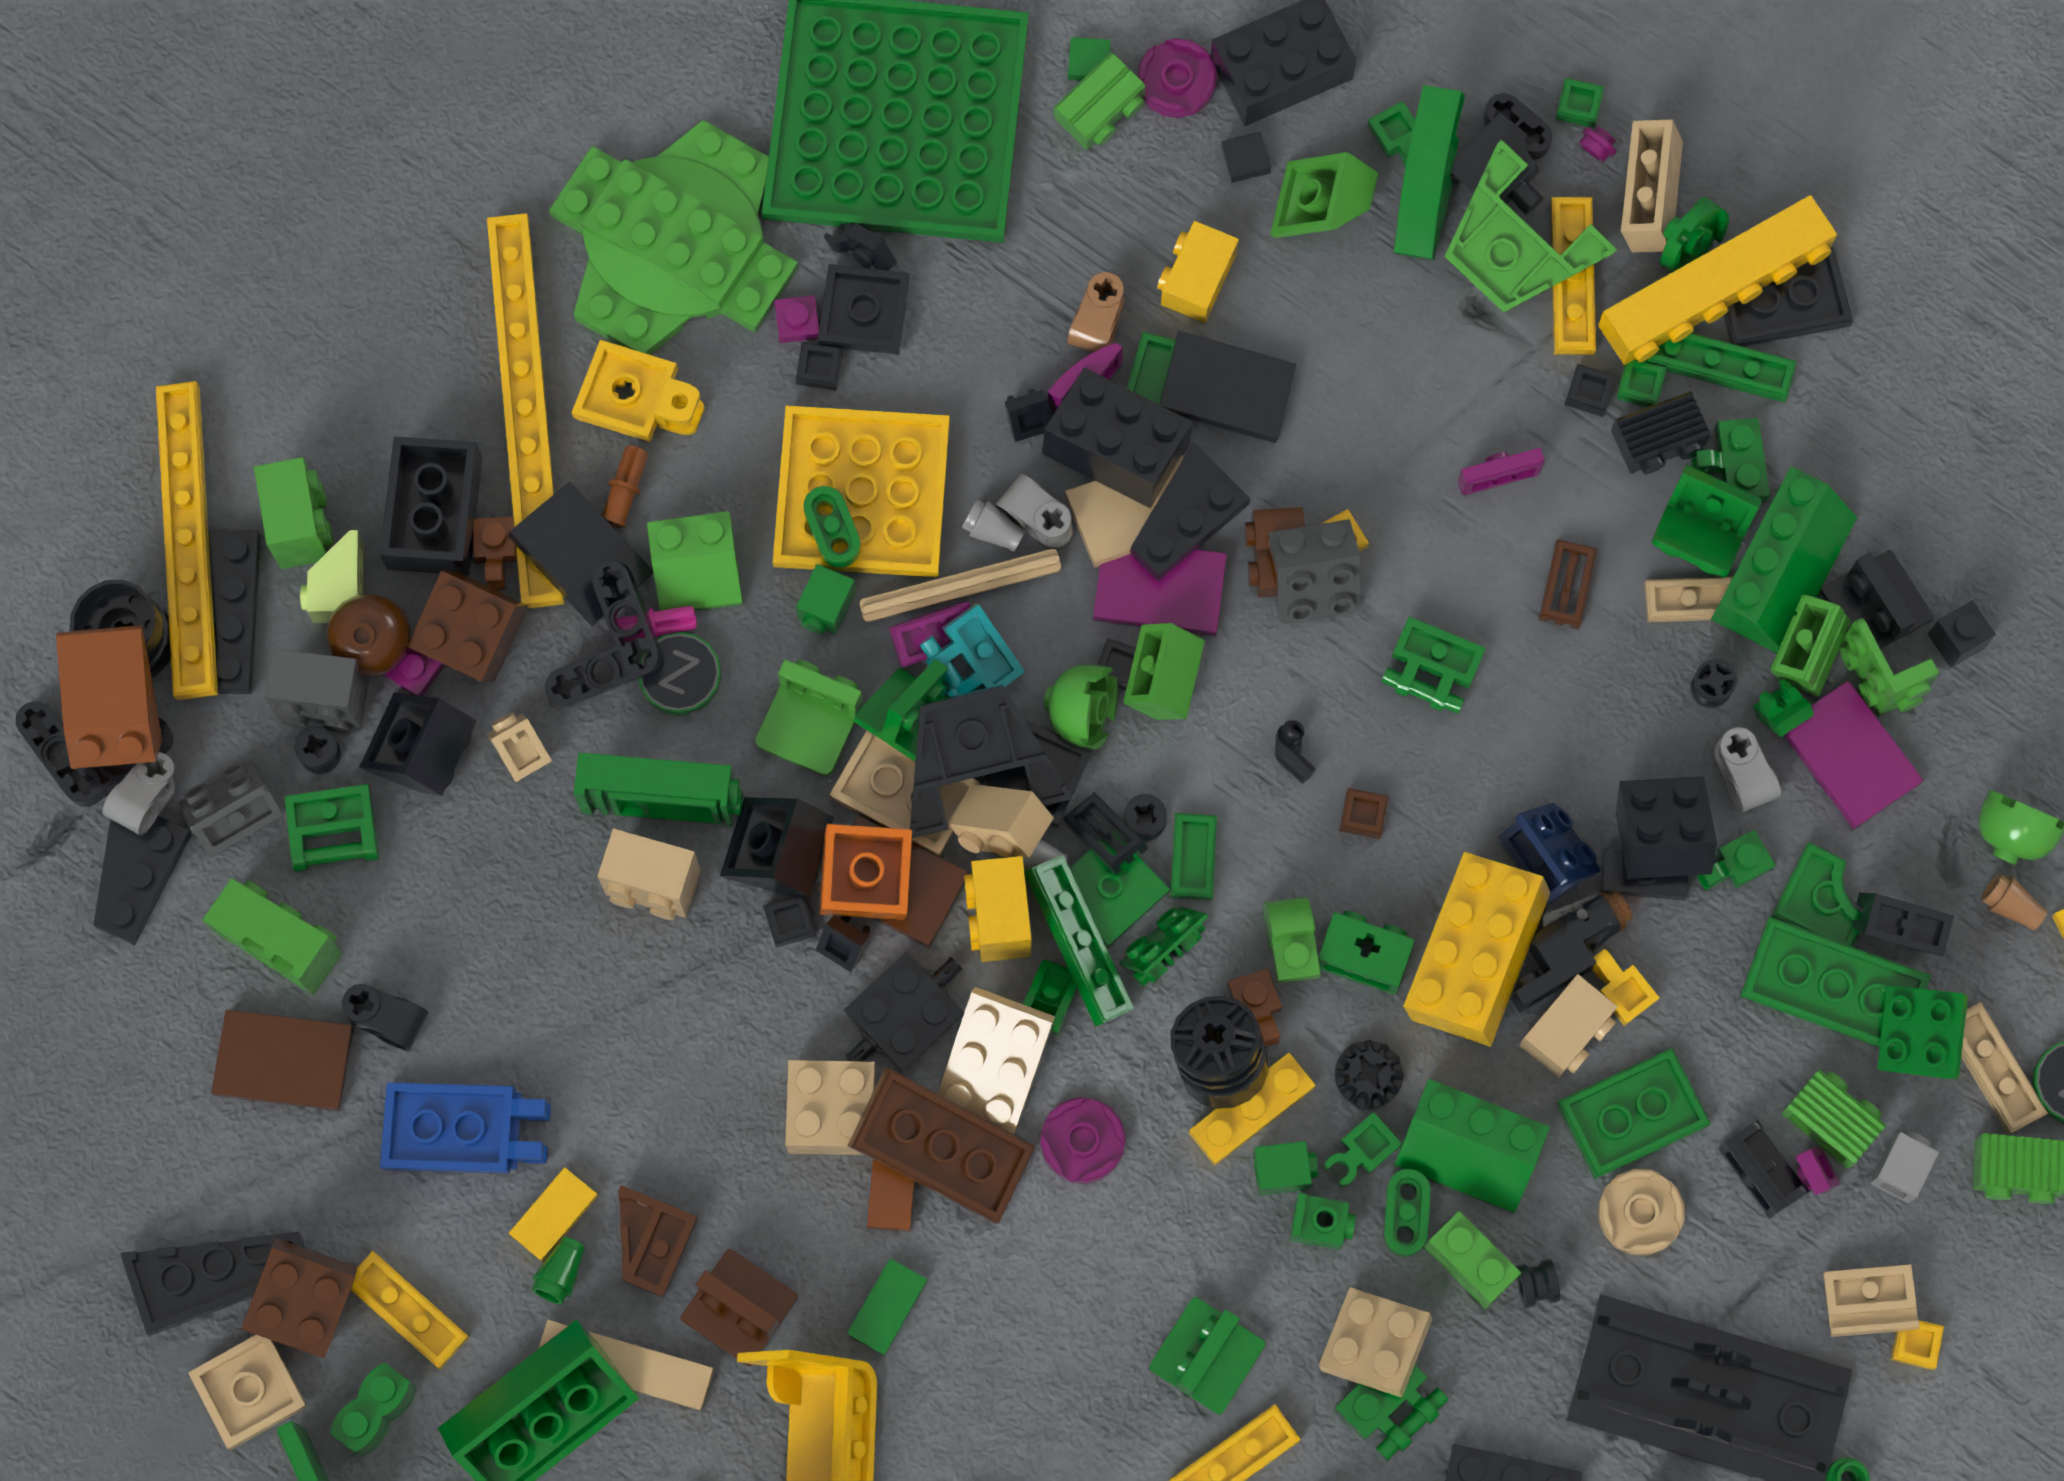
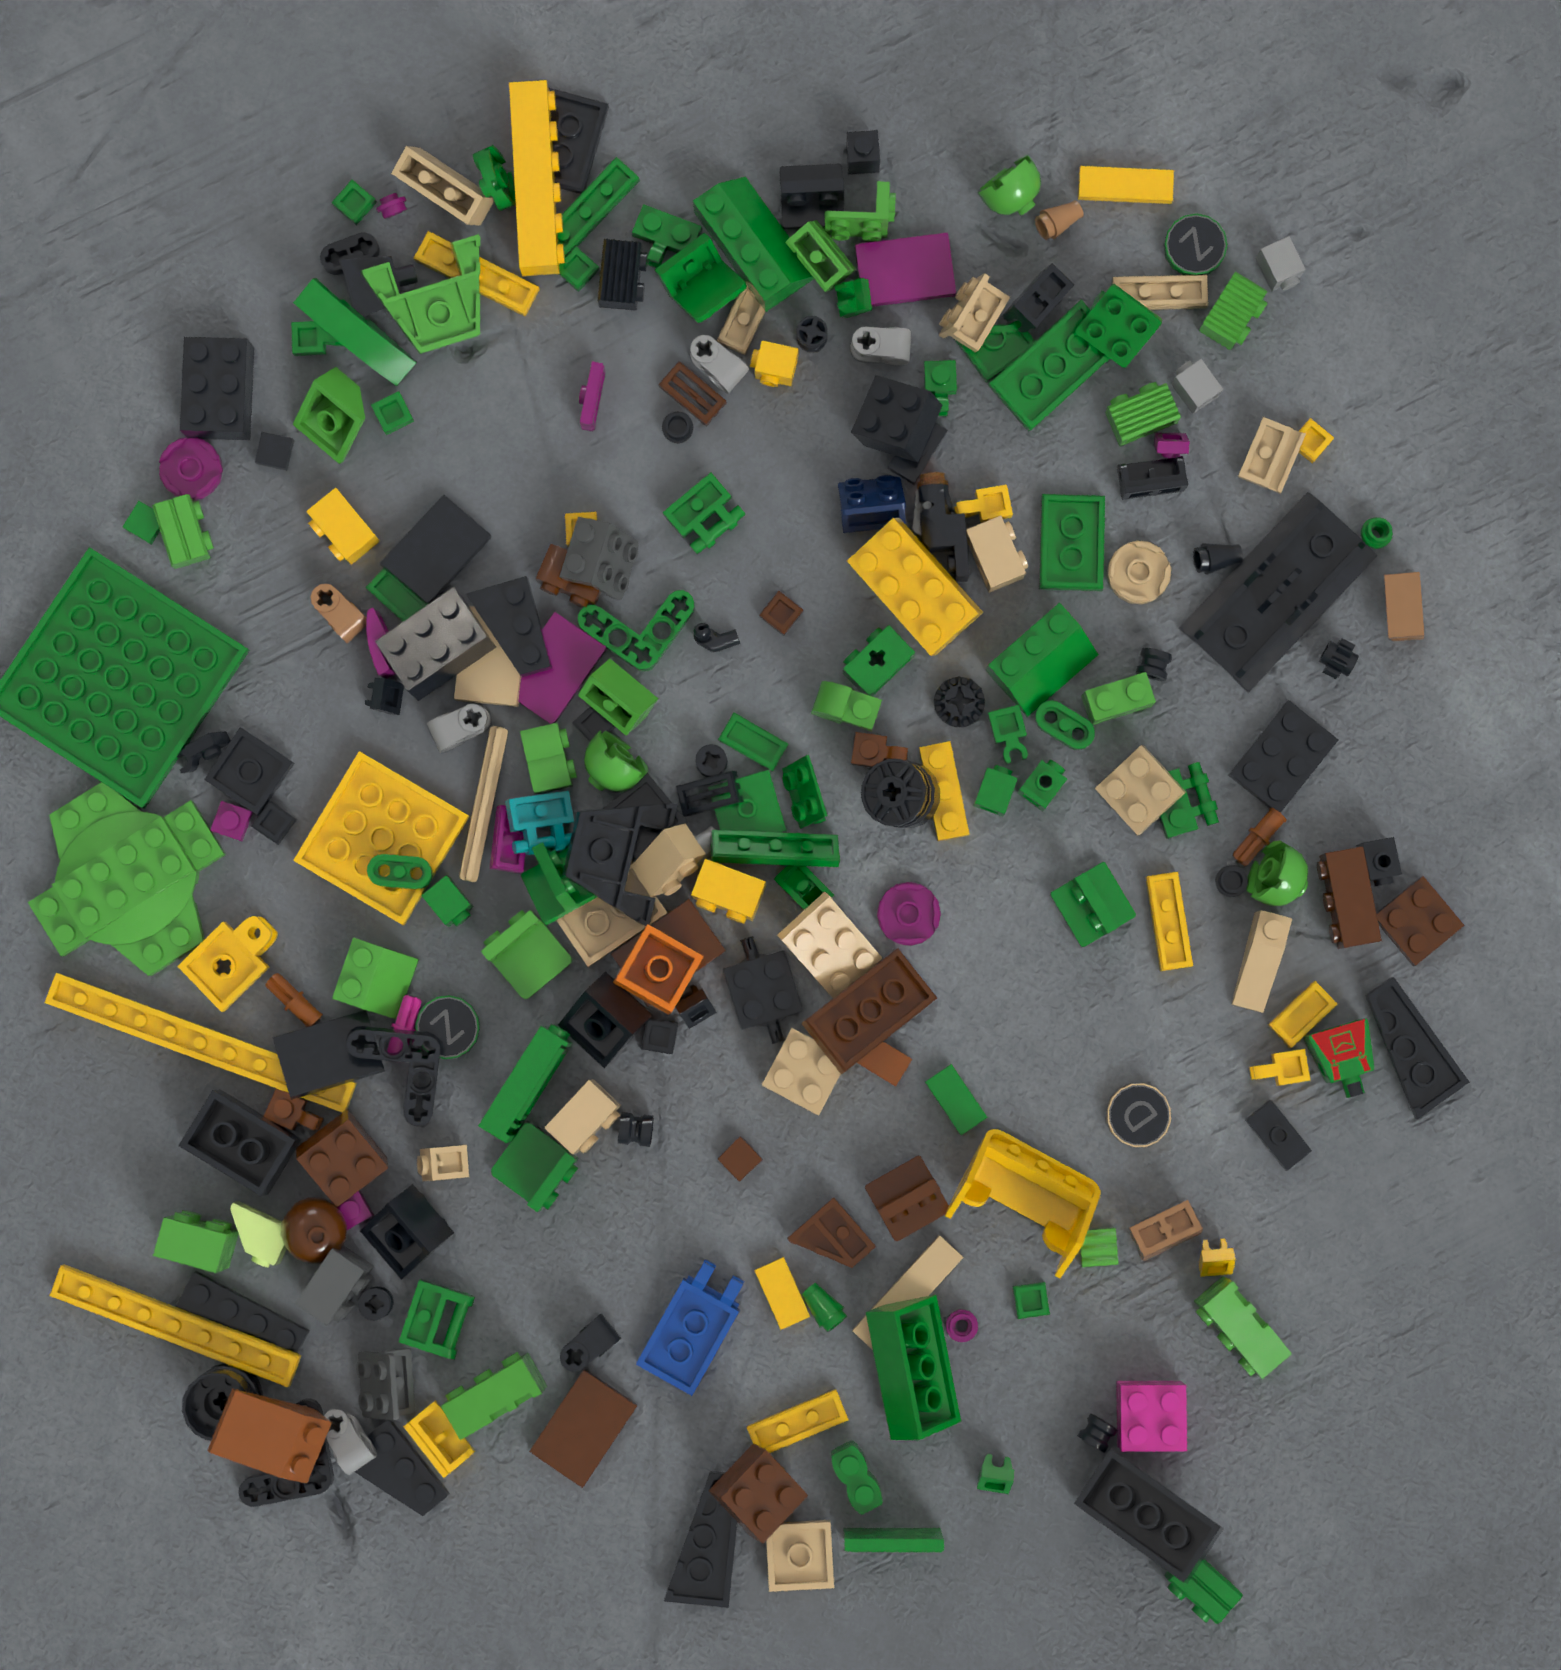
camera: 60 degrees left, 10 degrees up
(189, 898) = (438, 1439): none -> yellow hinge
(563, 851) = (535, 1167): none -> green bracket
(604, 1443) = (961, 1336): none -> magenta plate
(665, 945) = (628, 1129): none -> black wheel
(689, 1085) = (740, 1159): none -> reddish brown tile
(992, 526) = (452, 761): light grey cone -> none
(1051, 629) = (547, 758): none -> bright green brick
(1251, 673) = (646, 639): none -> green beam
(1359, 261) = (392, 413): none -> green plate
(1518, 586) = (677, 427): none -> black plate
(1590, 390) = (564, 305): black tile -> none
(1618, 597) = (721, 367): none -> light grey piece
(1654, 658) = (774, 364): none -> yellow brick
(1708, 1293) = (1214, 557): none -> black cone
(1843, 859) = (974, 313): none -> tan bracket

